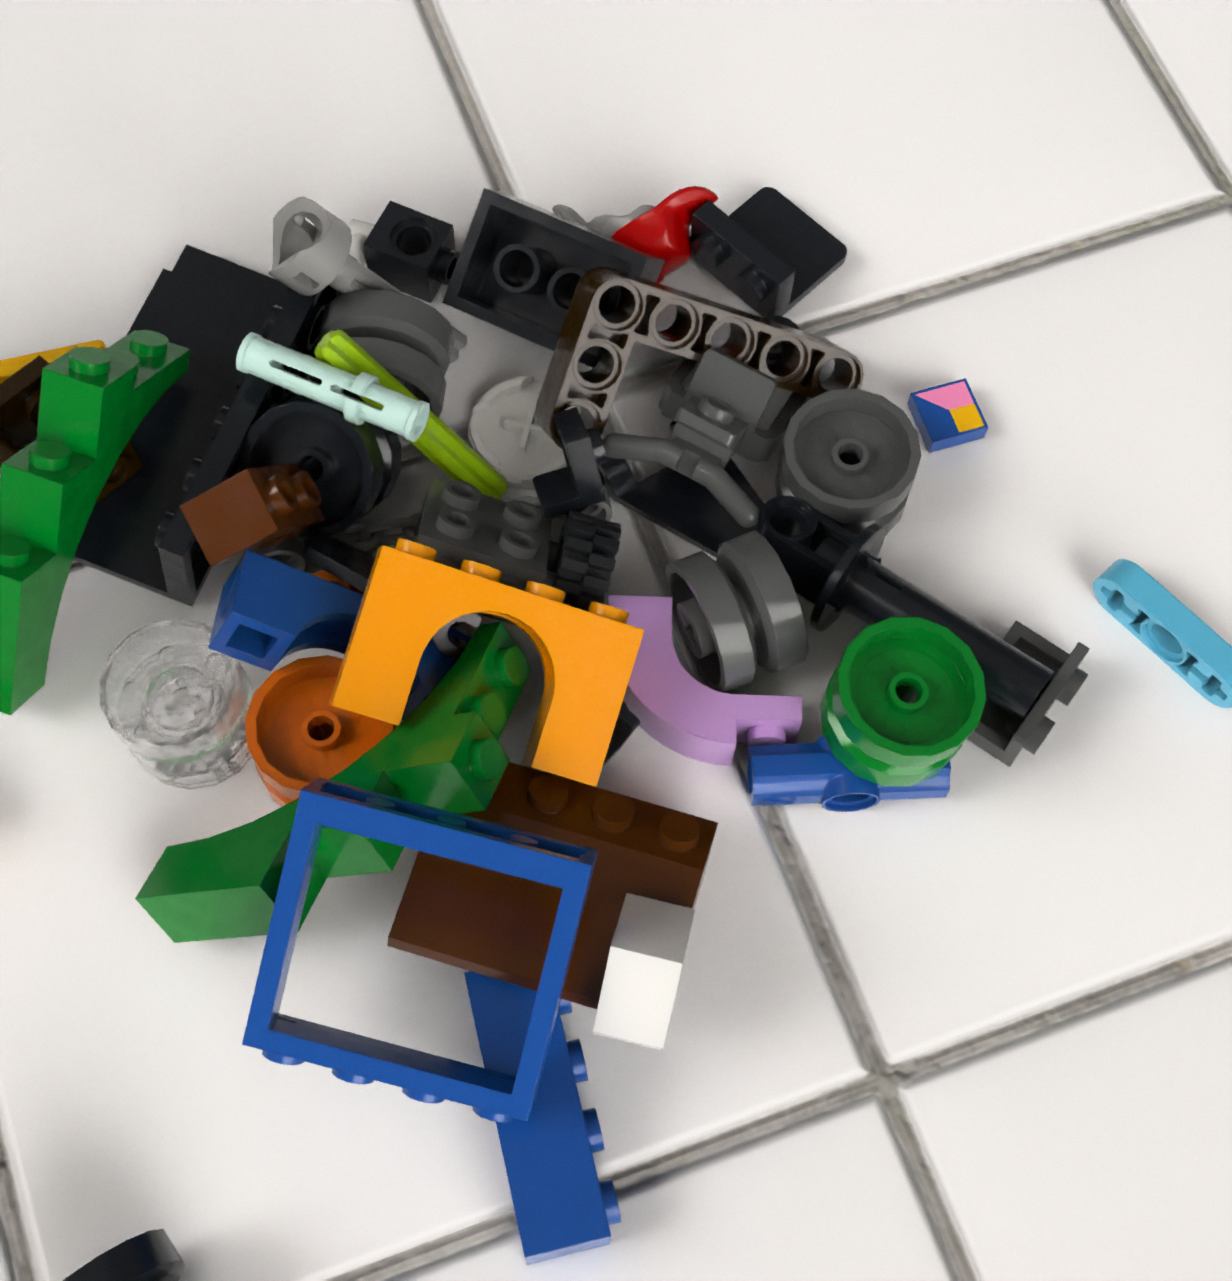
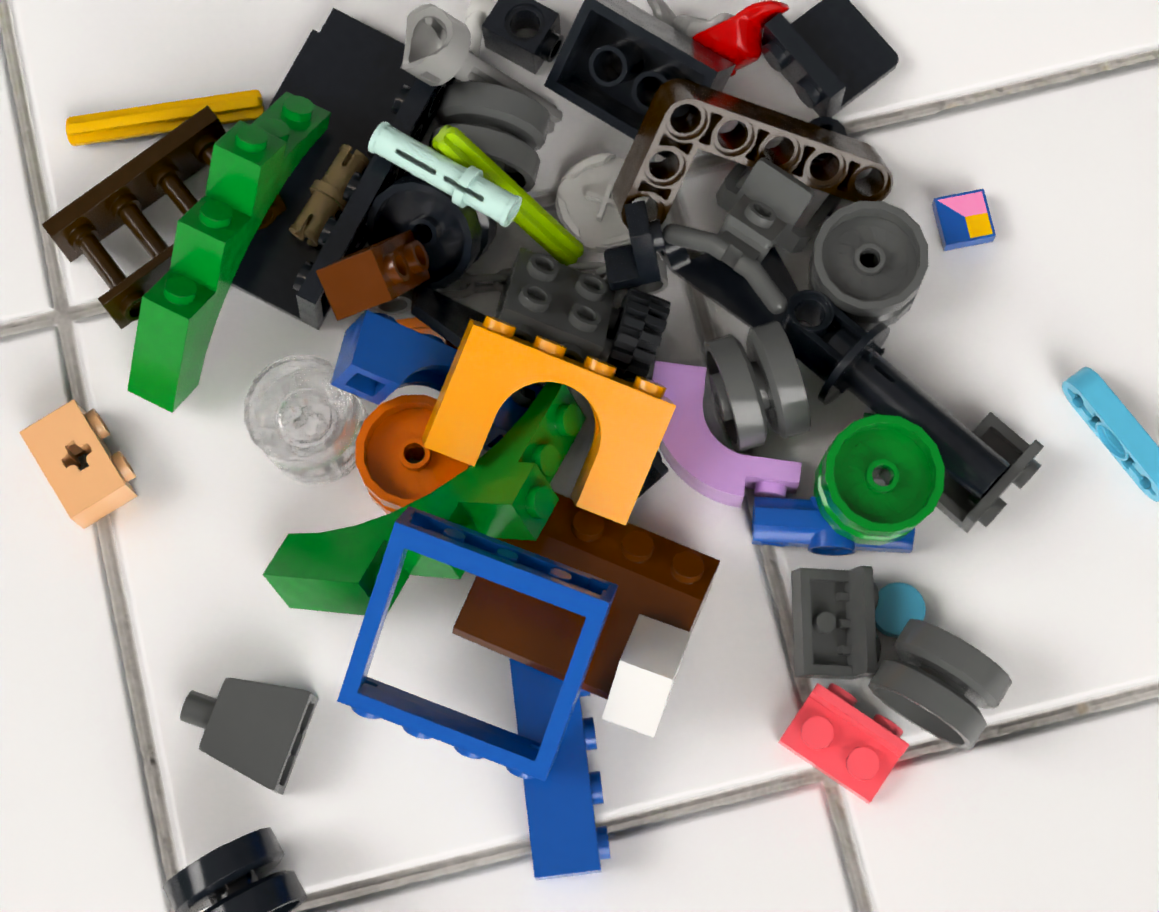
camera: 15 degrees right, 10 degrees up
(134, 1101) = (253, 727): none -> dark grey torso
(188, 444) = (328, 195): none -> tan pin
(868, 889) = (834, 623): none -> dark grey bracket
(901, 1035) = (845, 741): none -> coral bracket
(941, 867) = (896, 606): none -> medium azure tile
(1013, 945) = (940, 683): none -> dark grey wheel

